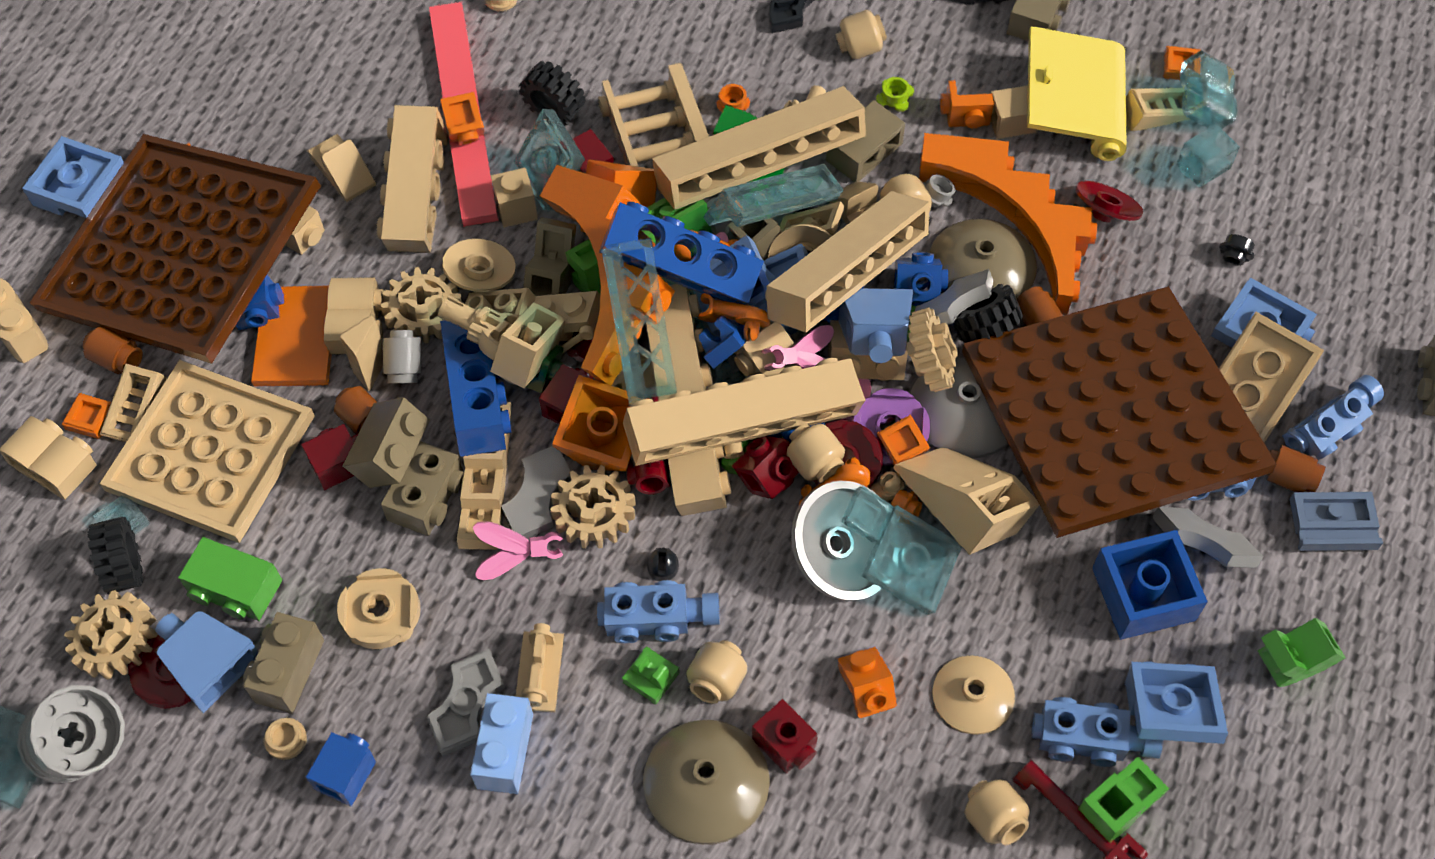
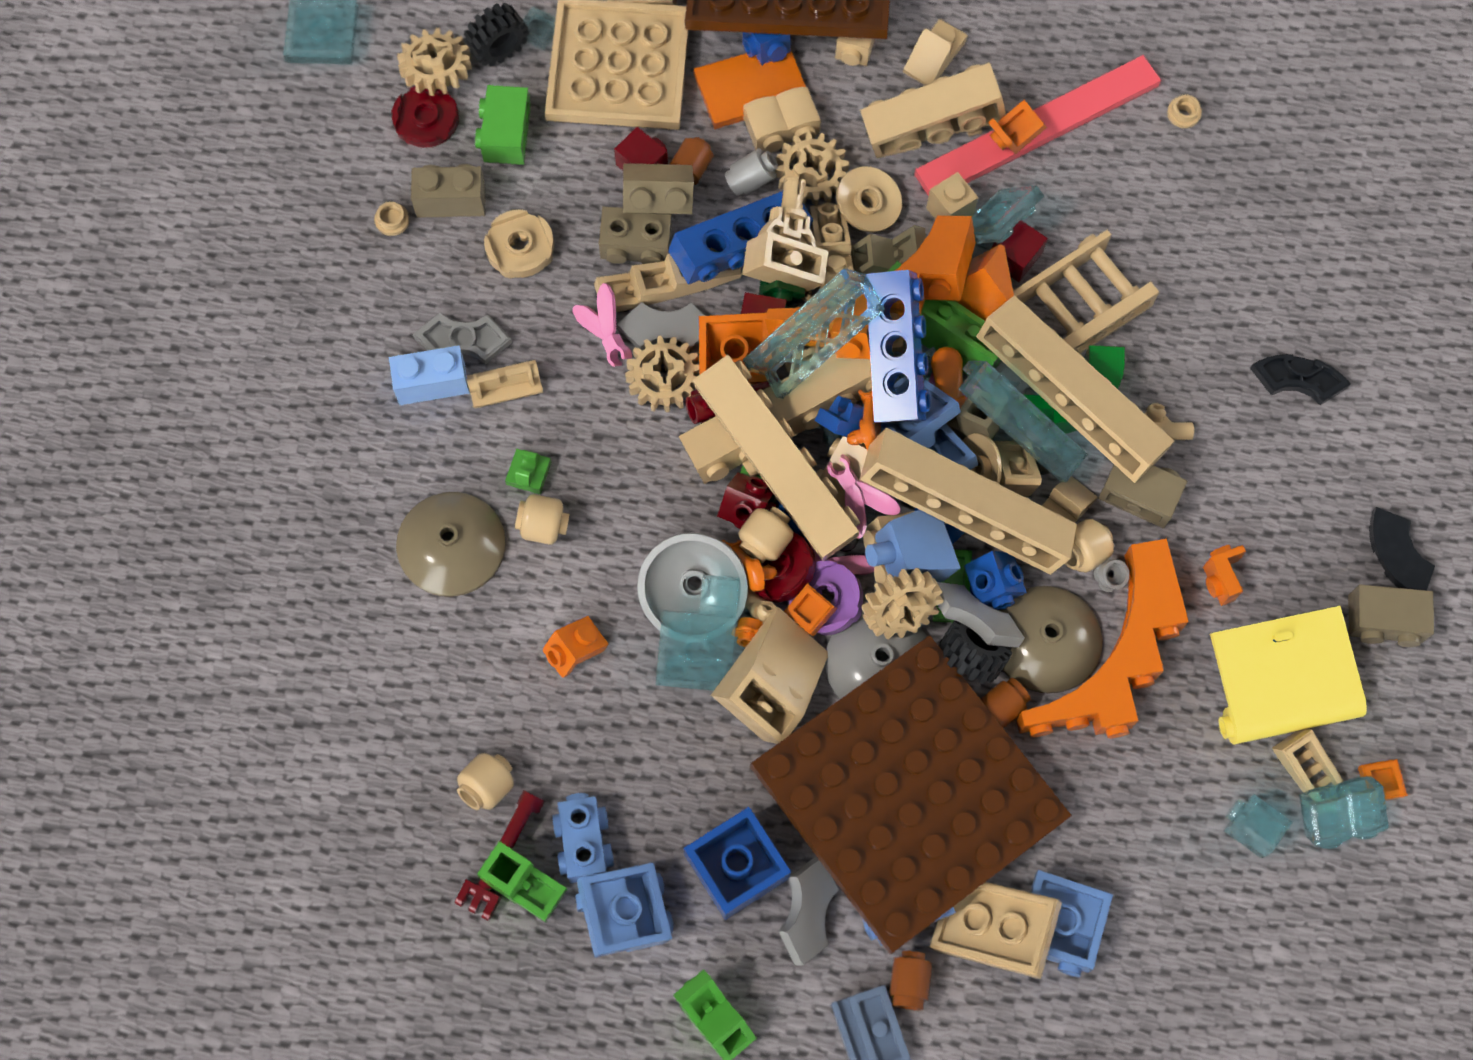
camera: 70 degrees right, 10 degrees up
(92, 720) = (317, 61): light grey wheel -> none
(203, 655) = (430, 130): medium blue torso -> none
(342, 767) = (374, 266): blue brick -> none
(364, 350) = (738, 137): tan slope -> none
(552, 89) = (1076, 192): black tyre -> none
(647, 617) = (580, 445): medium blue brick -> none
(671, 564) = (632, 453): black hinge -> none
(735, 93) = (1149, 348): orange plate -> none
(785, 737) = (500, 591): dark red brick -> none
(861, 34) = (1275, 450): tan head -> none
(896, 86) = (1224, 496): lime plate -> none
(973, 712) = (596, 758): tan dish -> none
(1010, 112) = (1235, 613): tan brick -> none
(1108, 202) = (1162, 739): dark red dish -> none
(1237, 249) = (1155, 882): black plate -> none
(1335, 419) = (971, 1006): medium blue brick -> none

